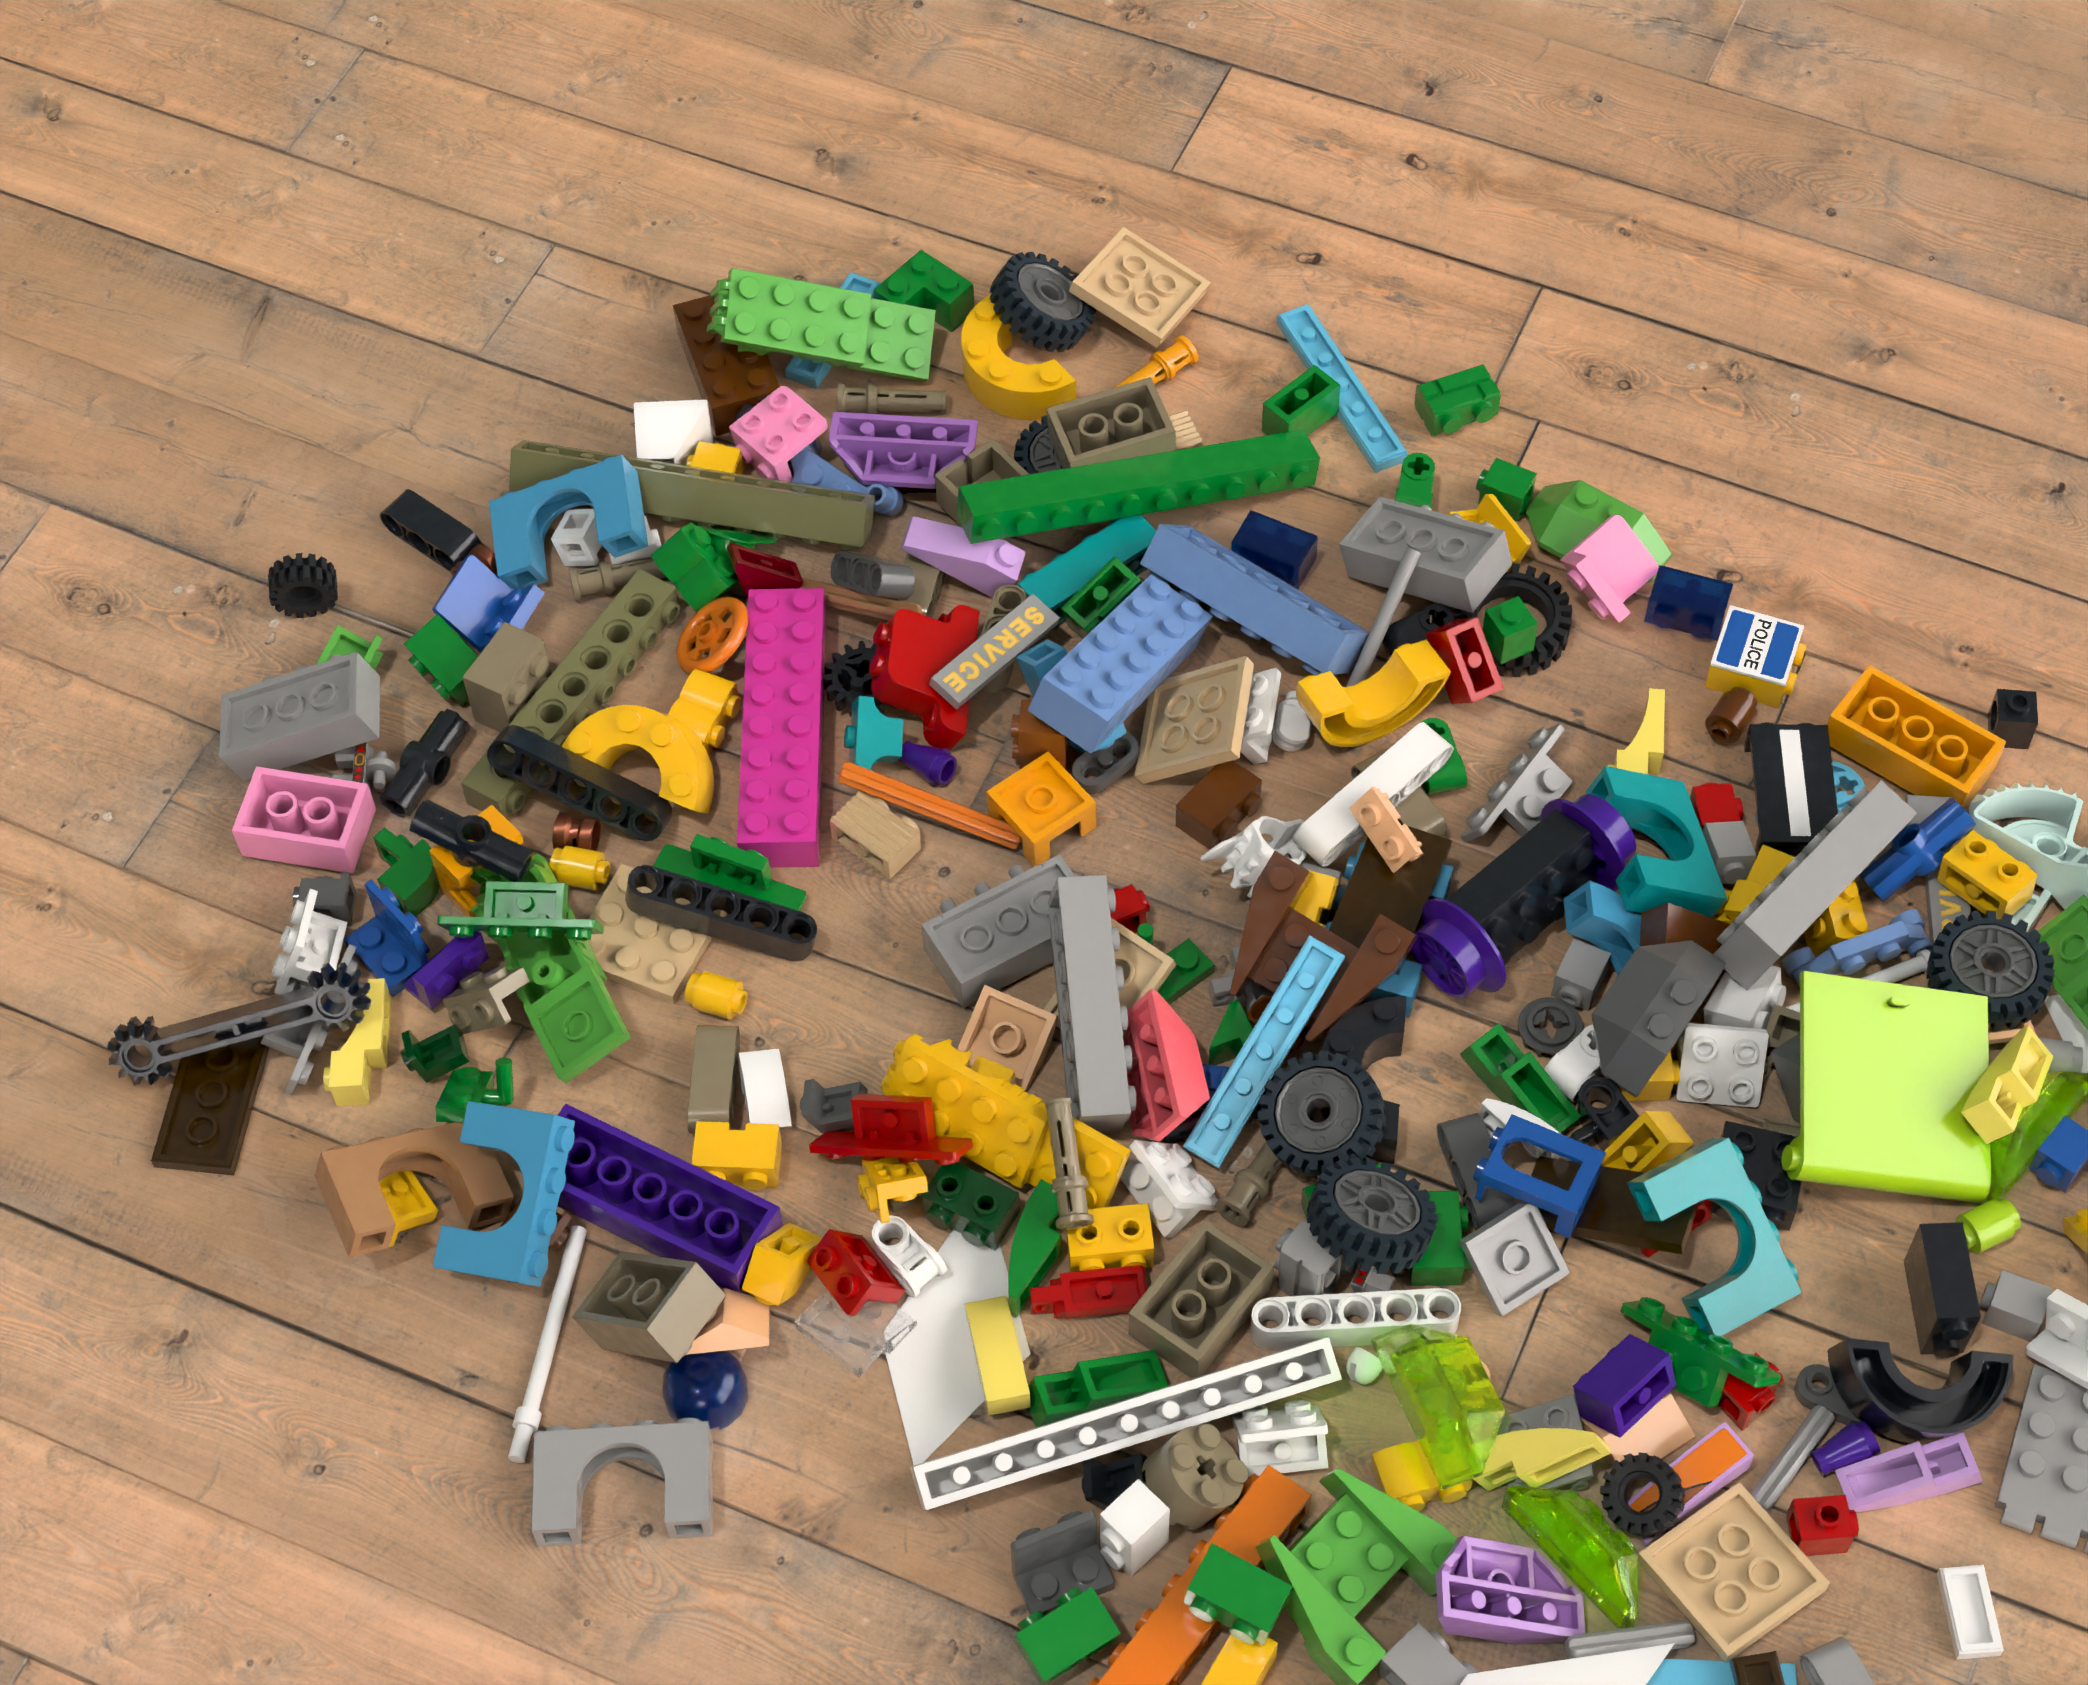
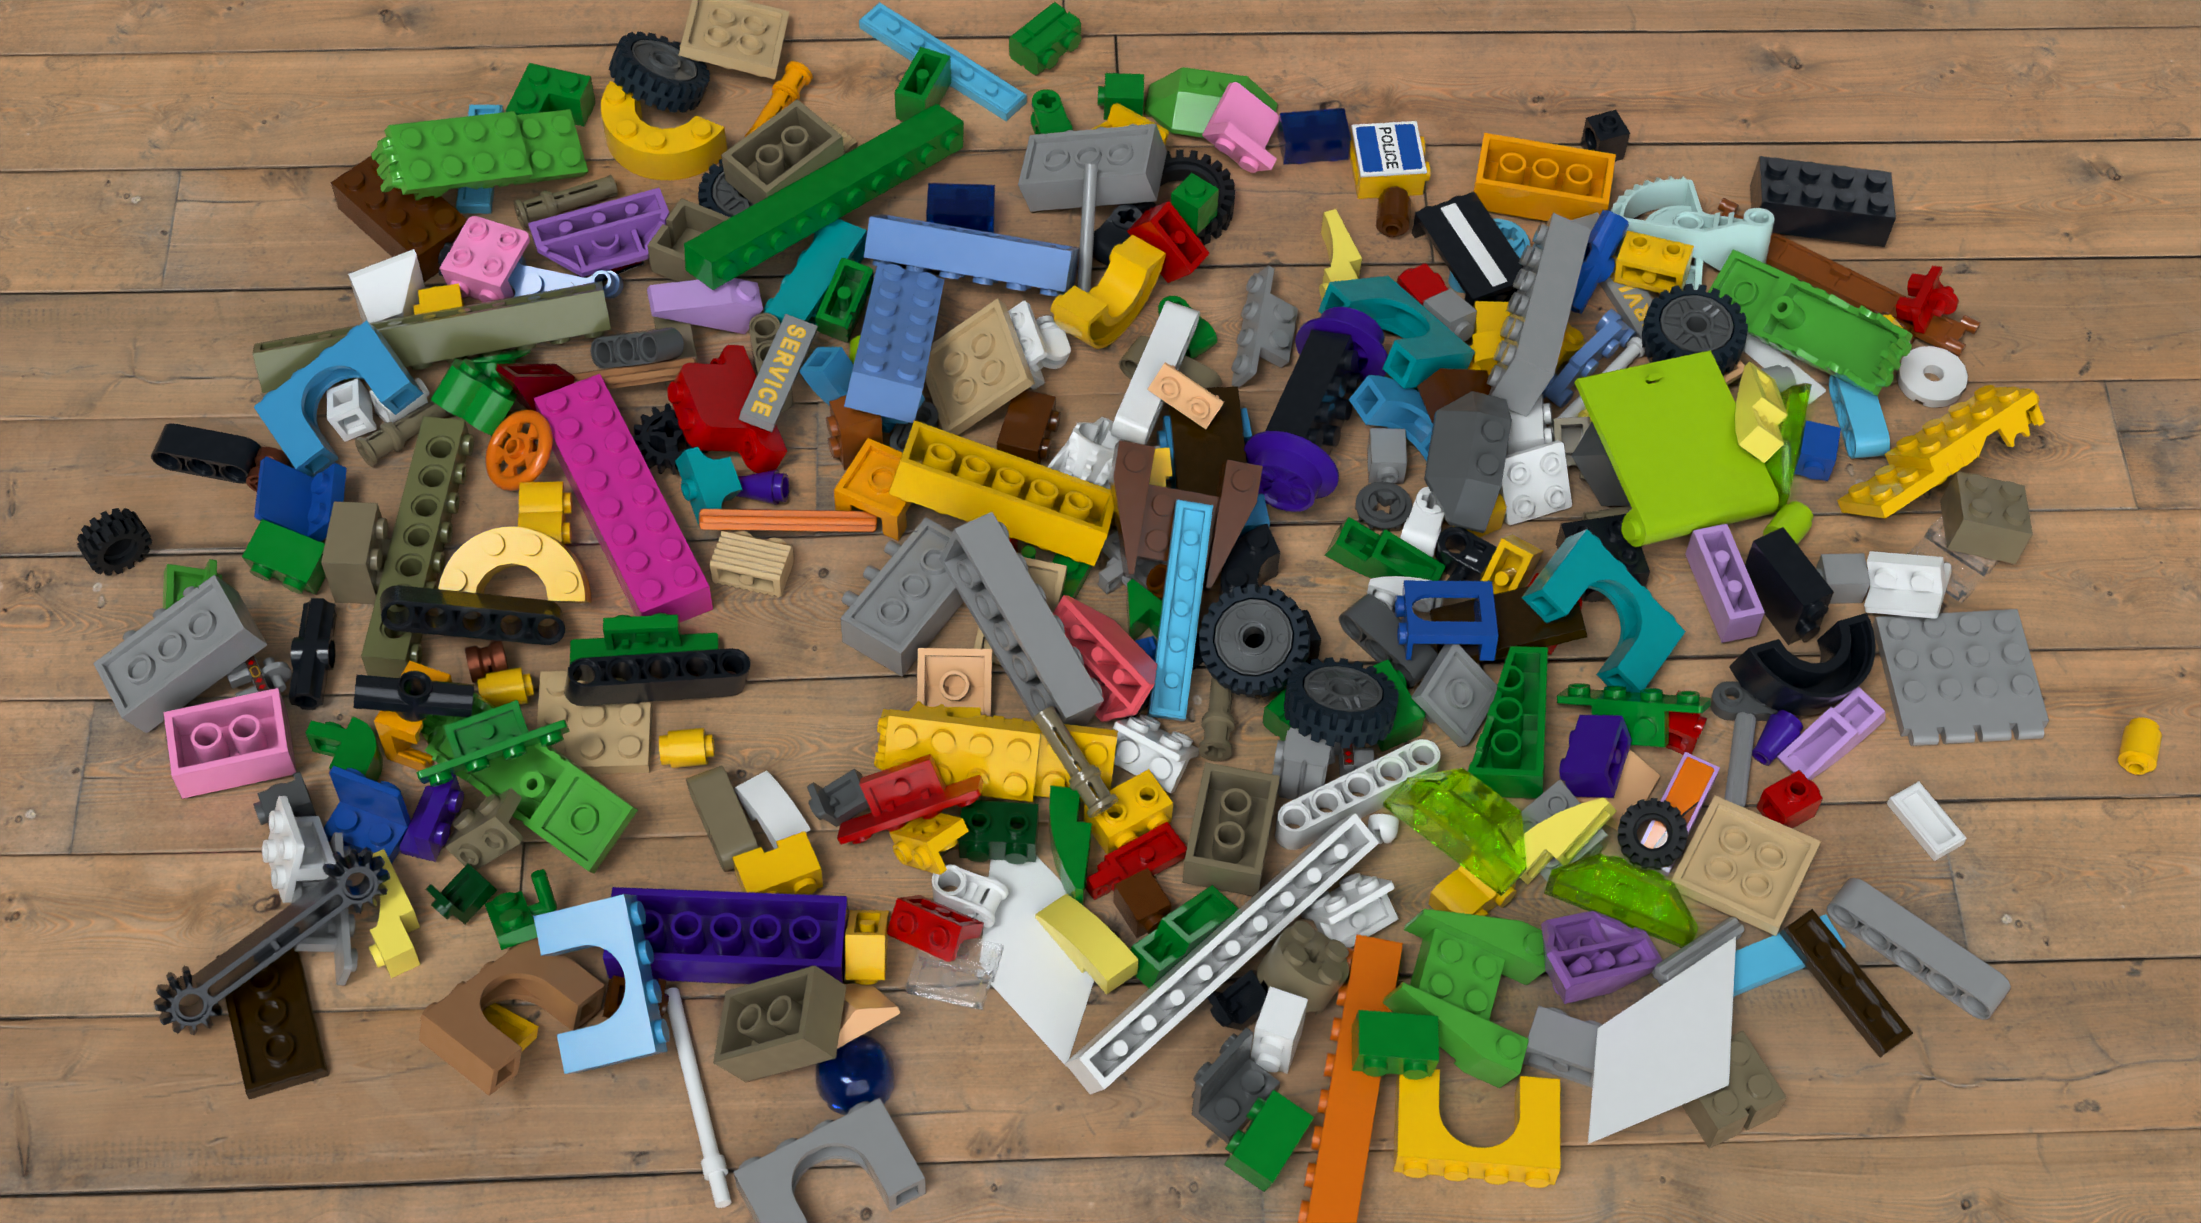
camera: 30 degrees left, 0 degrees up
(1072, 1335) = (1141, 902): none -> reddish brown brick
(1145, 858) = (1028, 498): none -> yellow brick
(1553, 1327) = (1513, 738): none -> green wedge
(1875, 1257) = (1724, 583): none -> lavender brick

